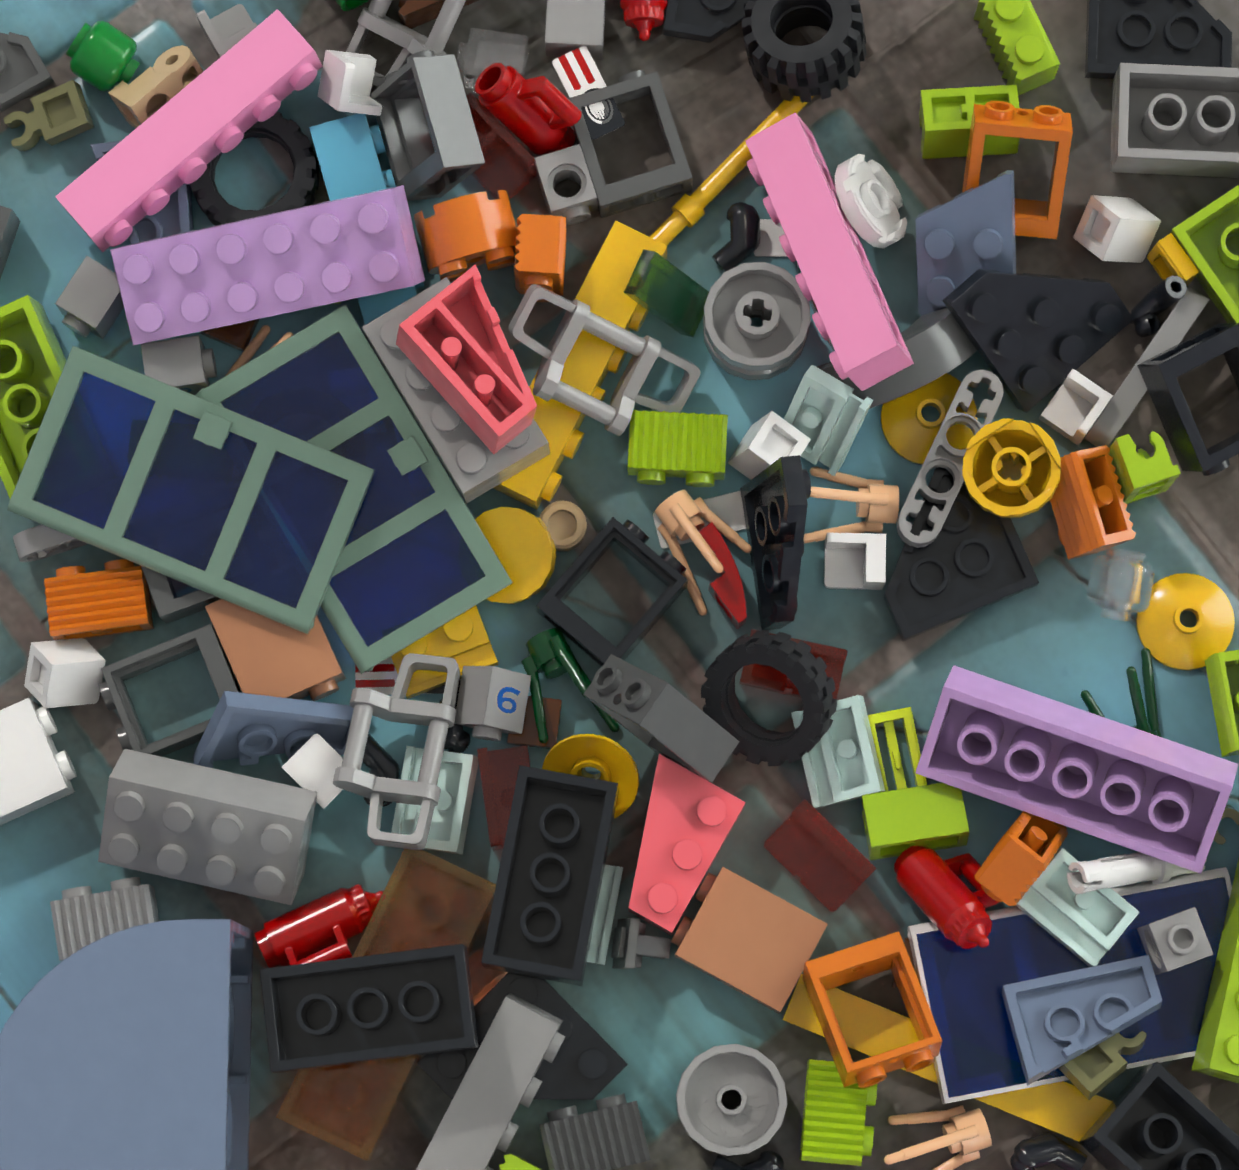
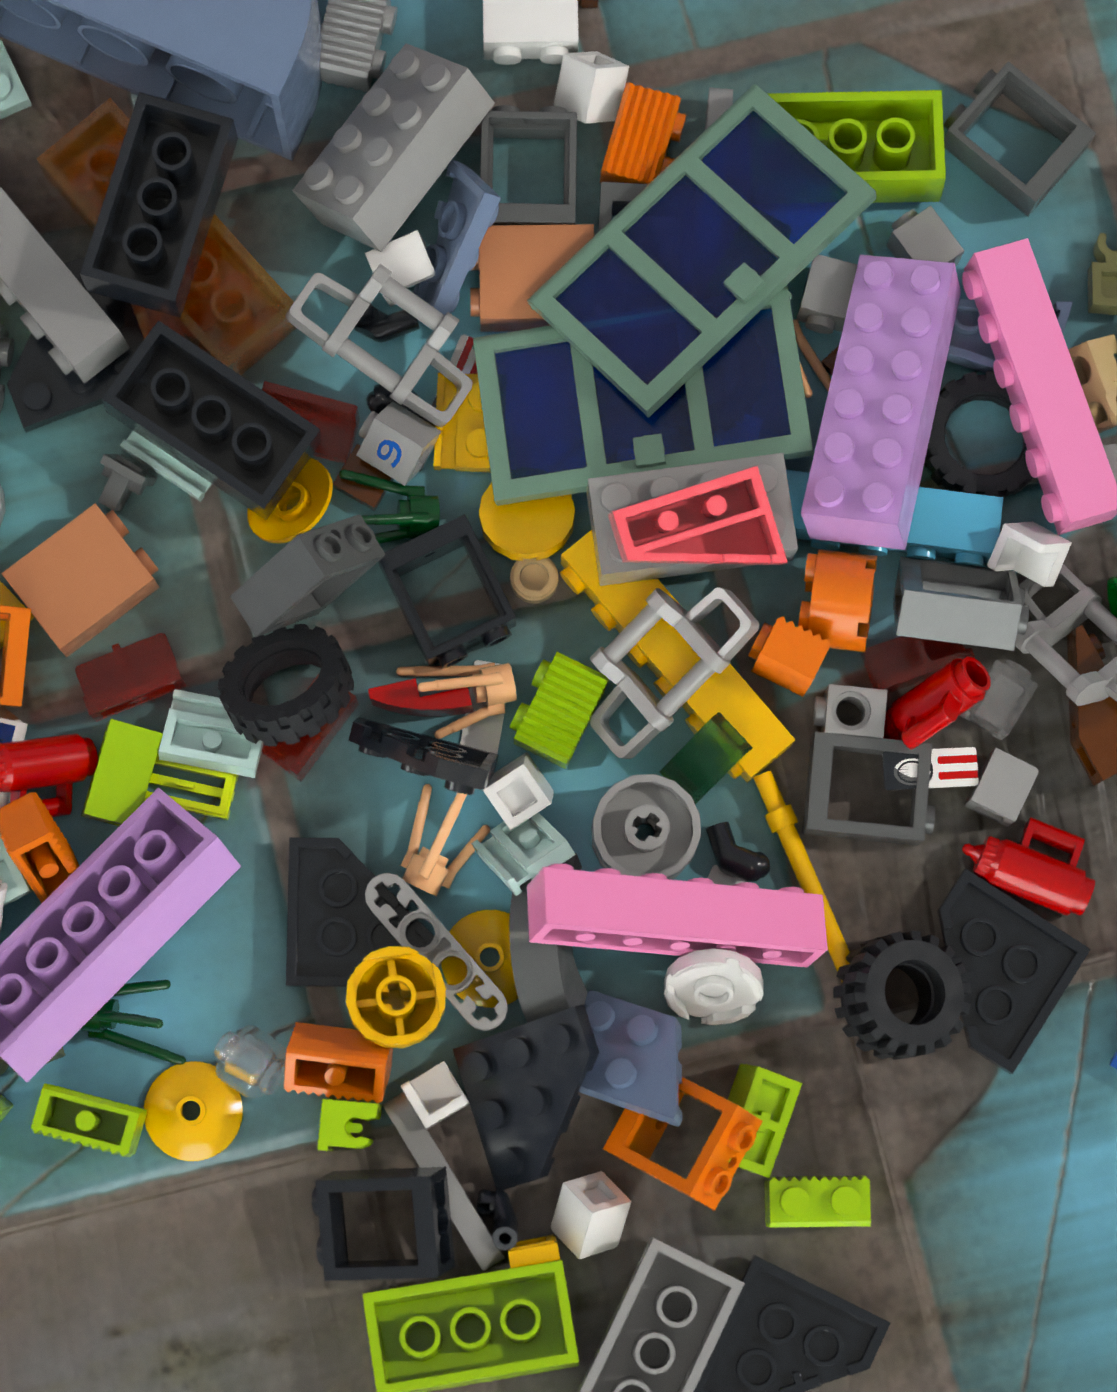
camera: 105 degrees right, 0 degrees up
(318, 928) = (266, 206): red piece -> none
(453, 810) = (325, 373): light aqua plate -> none
(679, 842) = (191, 550): coral wedge -> none
(855, 561) = (382, 827): white panel -> none

